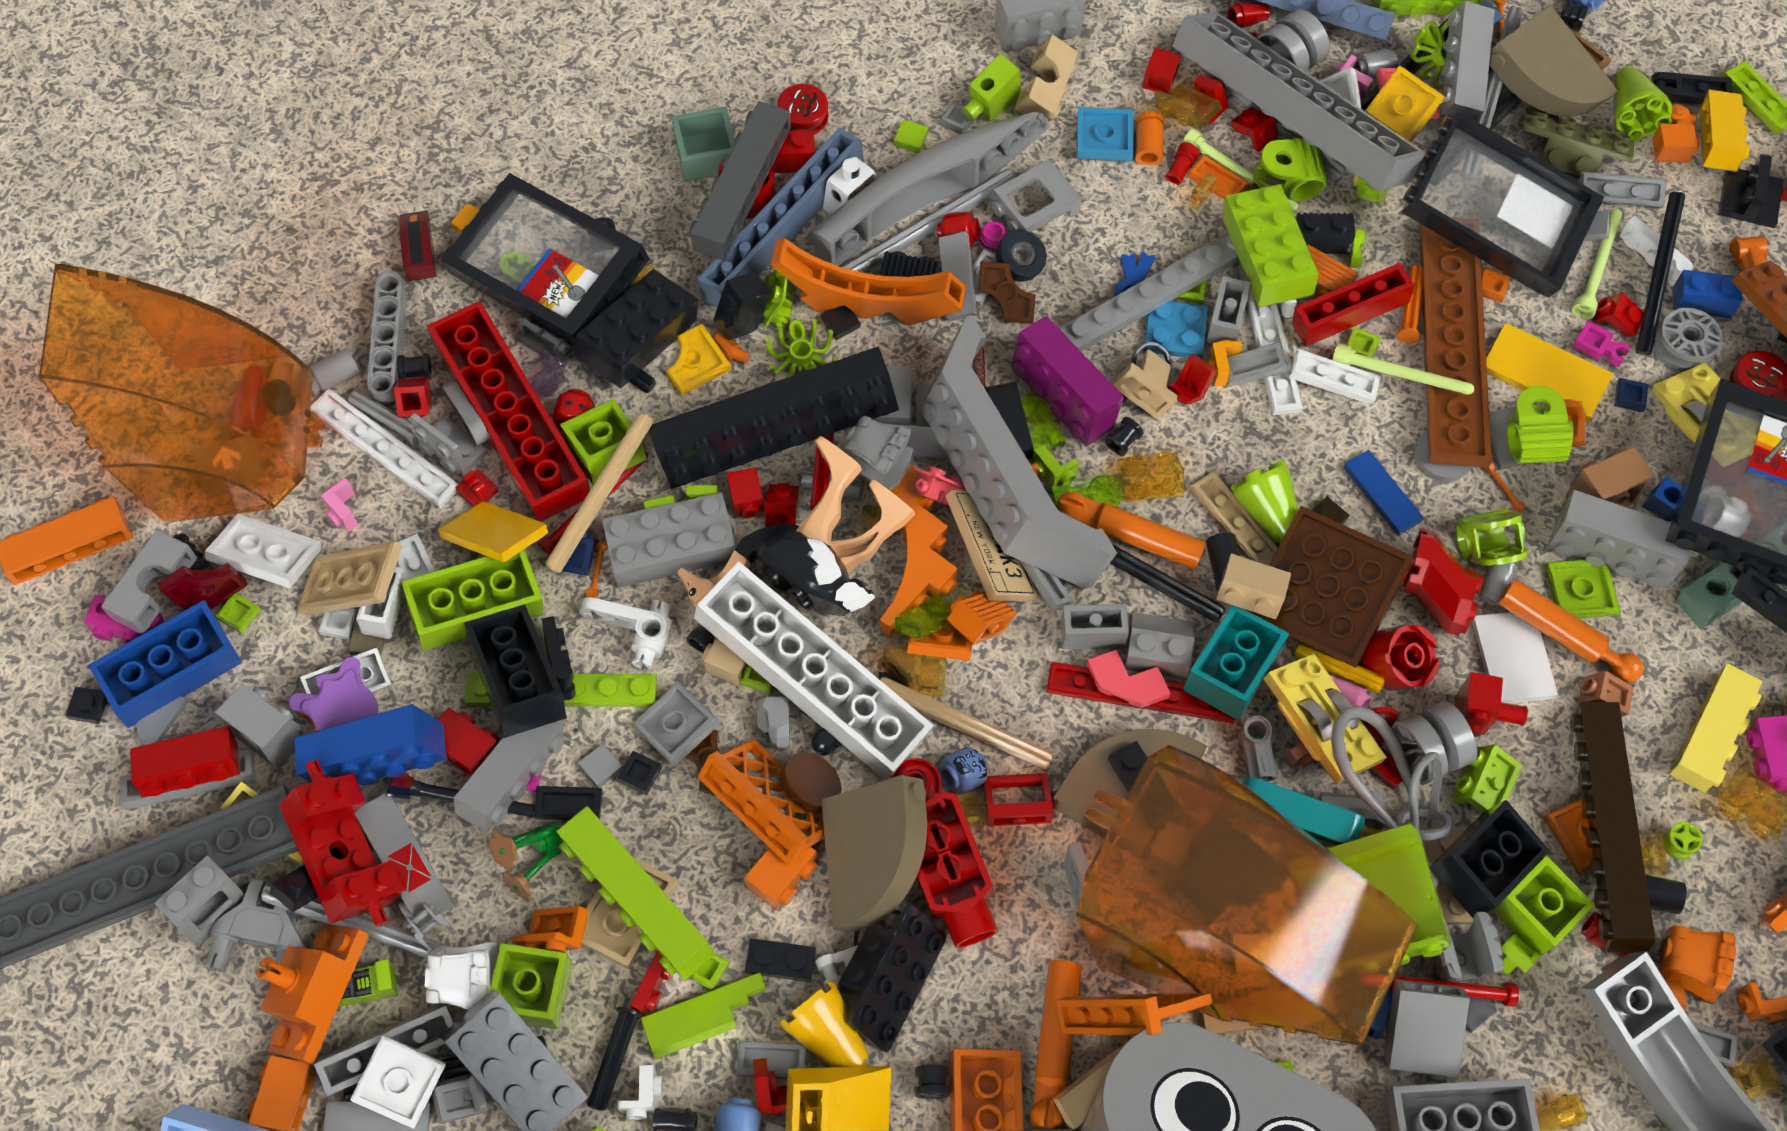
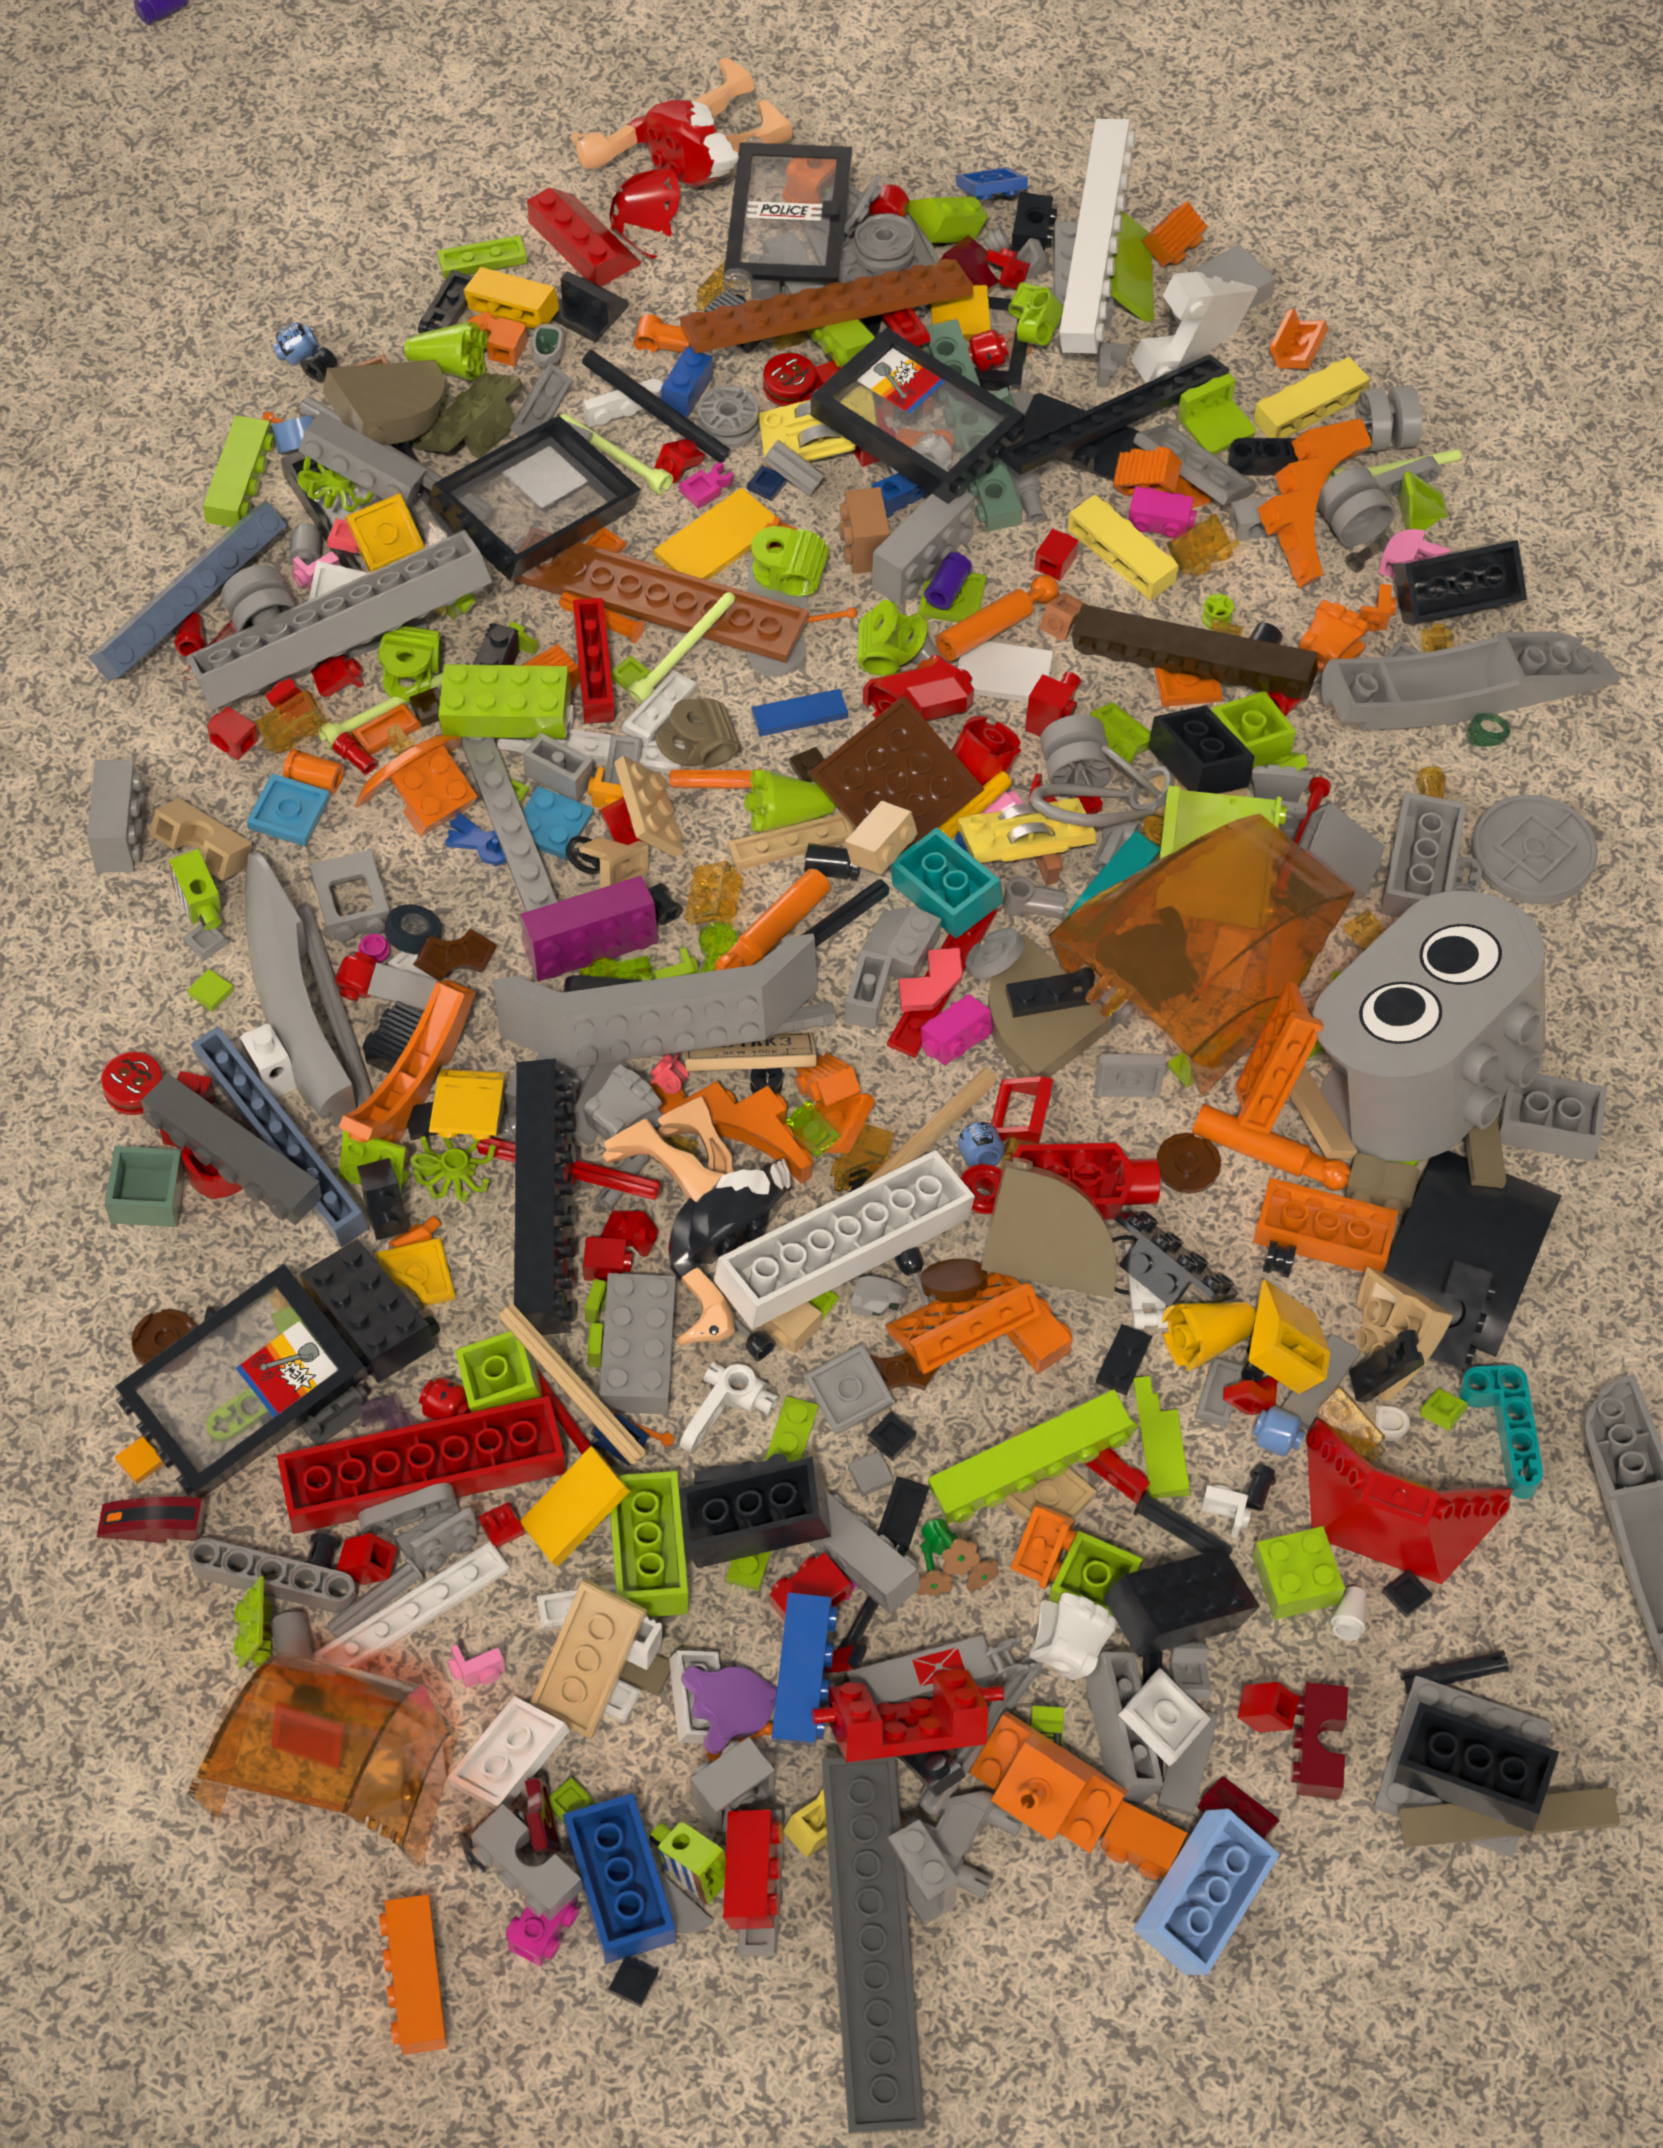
camera: 75 degrees left, 5 degrees down
(191, 709) = (691, 1859): none -> lime torso
(347, 327) = (254, 1617): none -> lime hinge
(589, 196) = (144, 1337): none -> reddish brown tile
(848, 331) = (468, 1103): none -> yellow slope
(966, 576) = (774, 1083): none -> black wheel
(1015, 979) = (1179, 1167): none -> reddish brown tile
(1079, 714) = (956, 1030): none -> dark pink brick
(1164, 216) = (426, 782): none -> orange piece
(1174, 726) = (996, 954): none -> light grey tile
(1216, 392) = (649, 806): none -> tan plate
(1276, 439) = (710, 779): none -> orange axle
(1314, 410) = (707, 742): none -> dark tan piece
(1356, 1083) = (1364, 929): none -> clear yellow tile
(1589, 574) = (948, 580): none -> dark purple piece
(1655, 407) = (793, 467): none -> light grey axle
(1675, 667) = (1056, 554): none -> red brick
(1687, 173) = (547, 344): none -> rock
(1740, 620) = (1028, 489): none -> light grey arm

